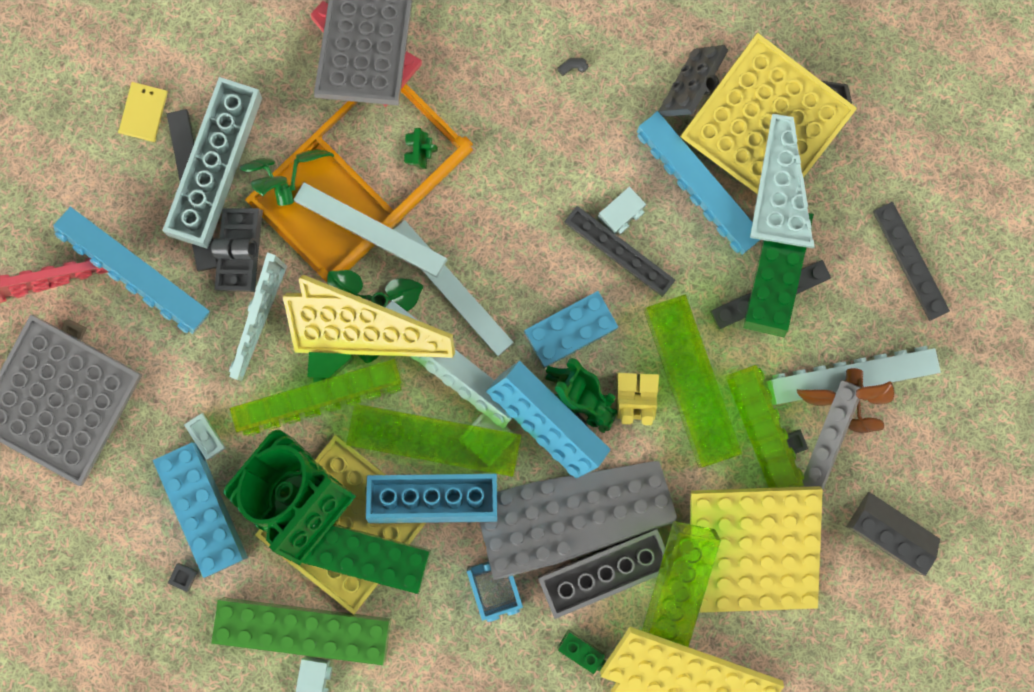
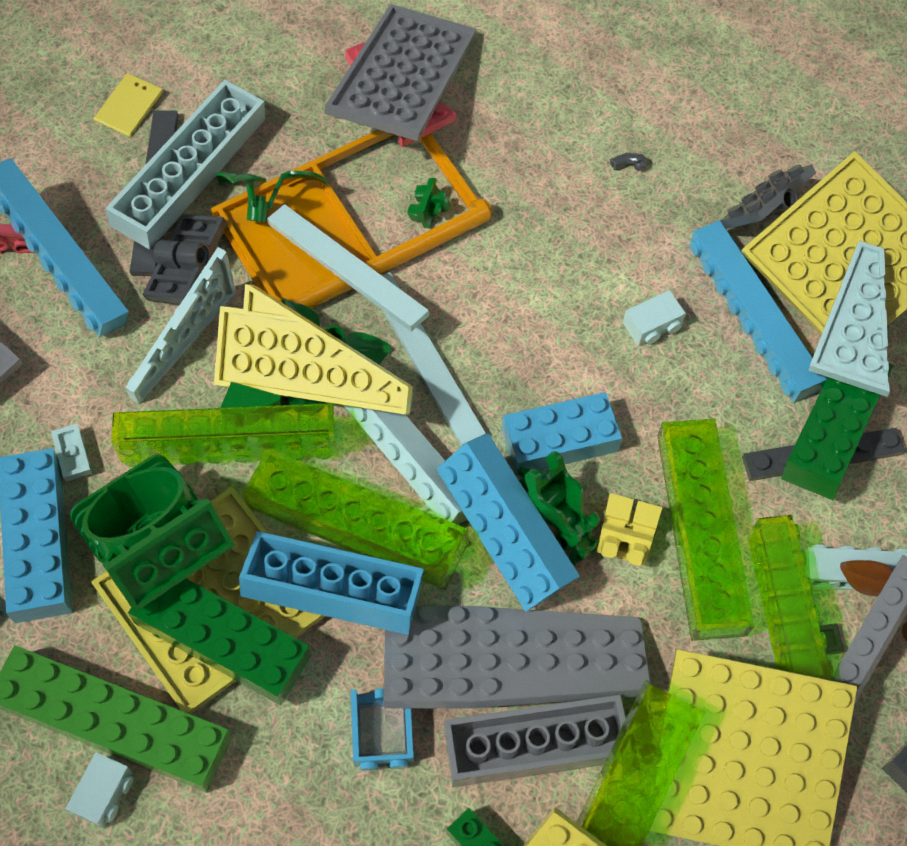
camera: 15 degrees right, 20 degrees down
(619, 251) = (642, 362): dark grey plate -> none

